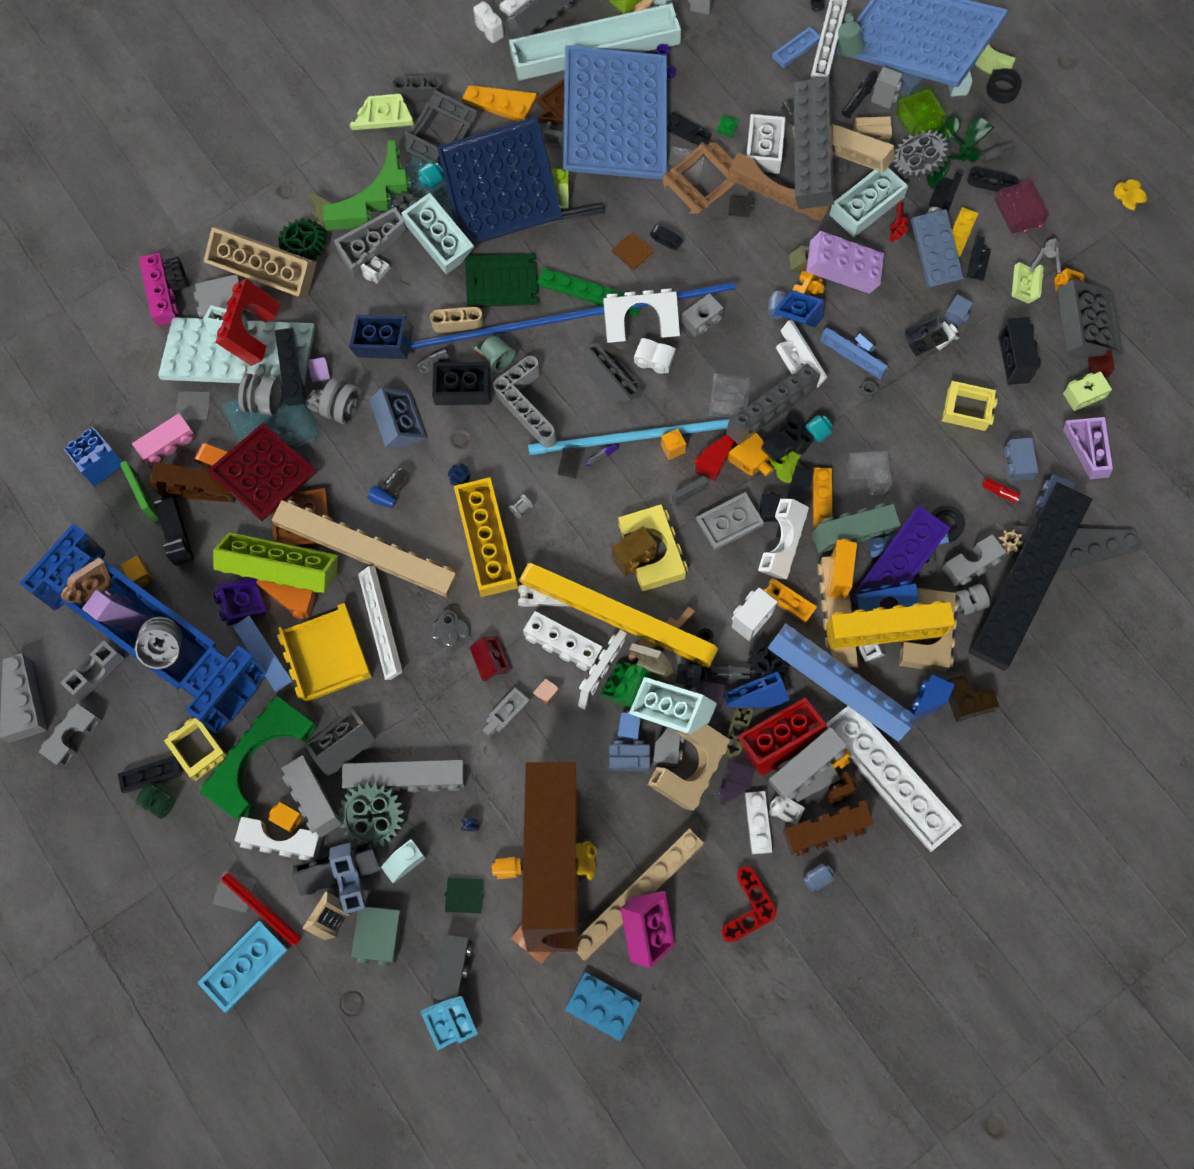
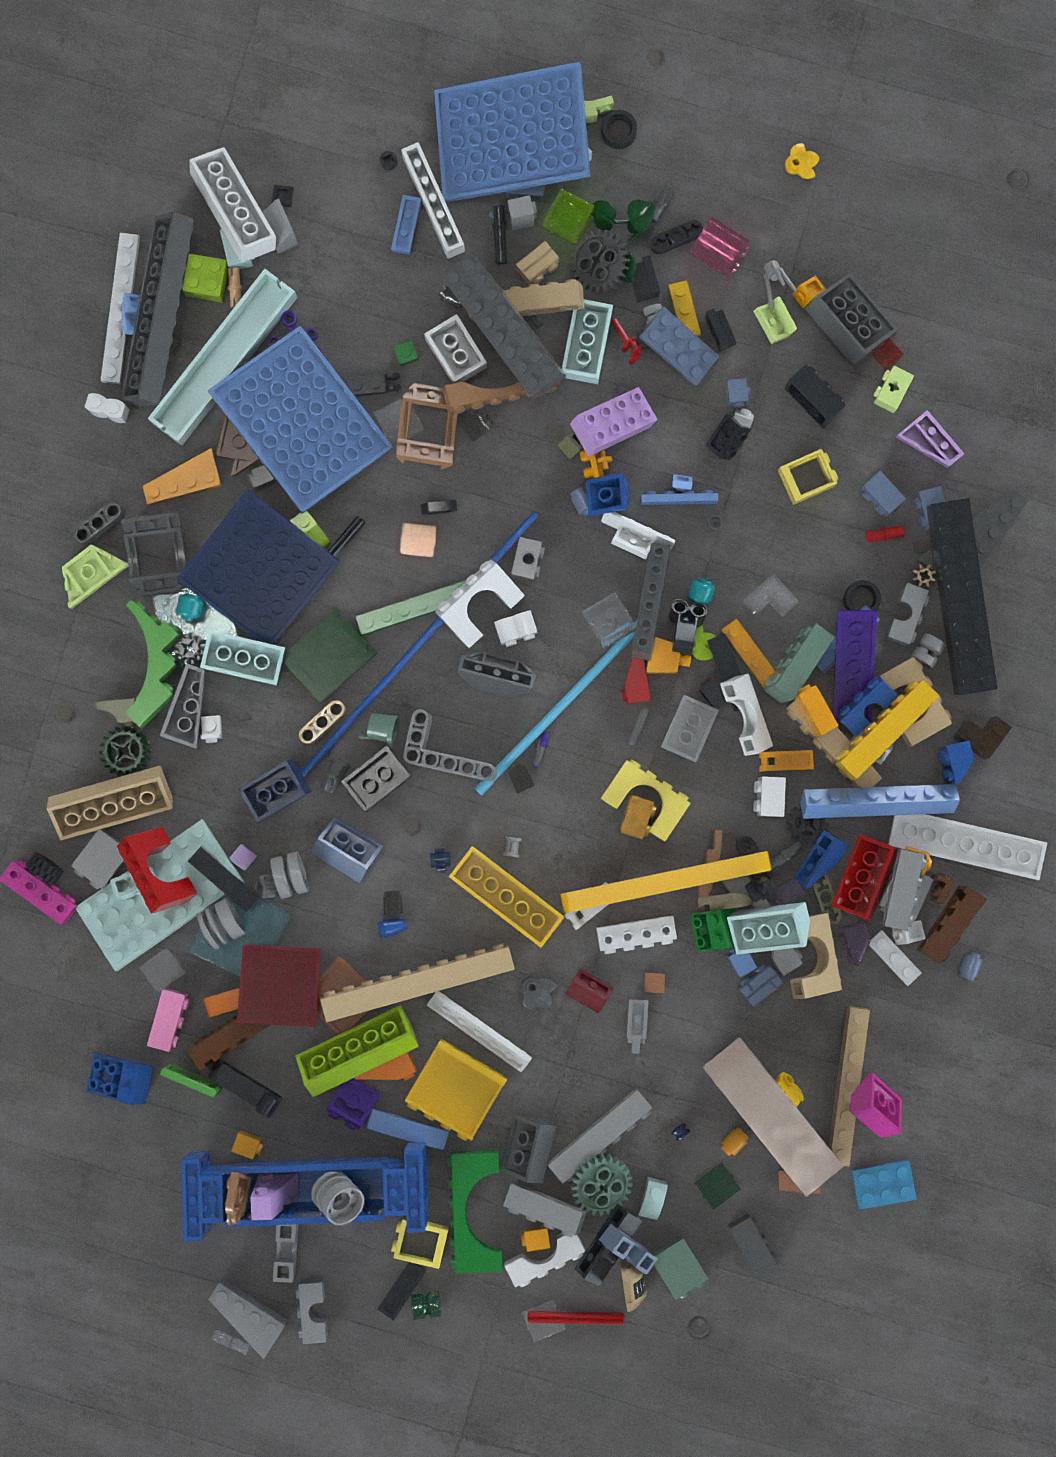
camera: 40 degrees left, 15 degrees up
(242, 966) = (598, 1368): medium azure plate -> none
(449, 1022) = (783, 1286): medium azure slope -> none
(607, 656) = (685, 938): white wing -> none
(673, 444) = (594, 697): light orange brick -> none
(756, 913) = (942, 1028): red beam -> none
(850, 38) = (453, 186): sand green hat -> none

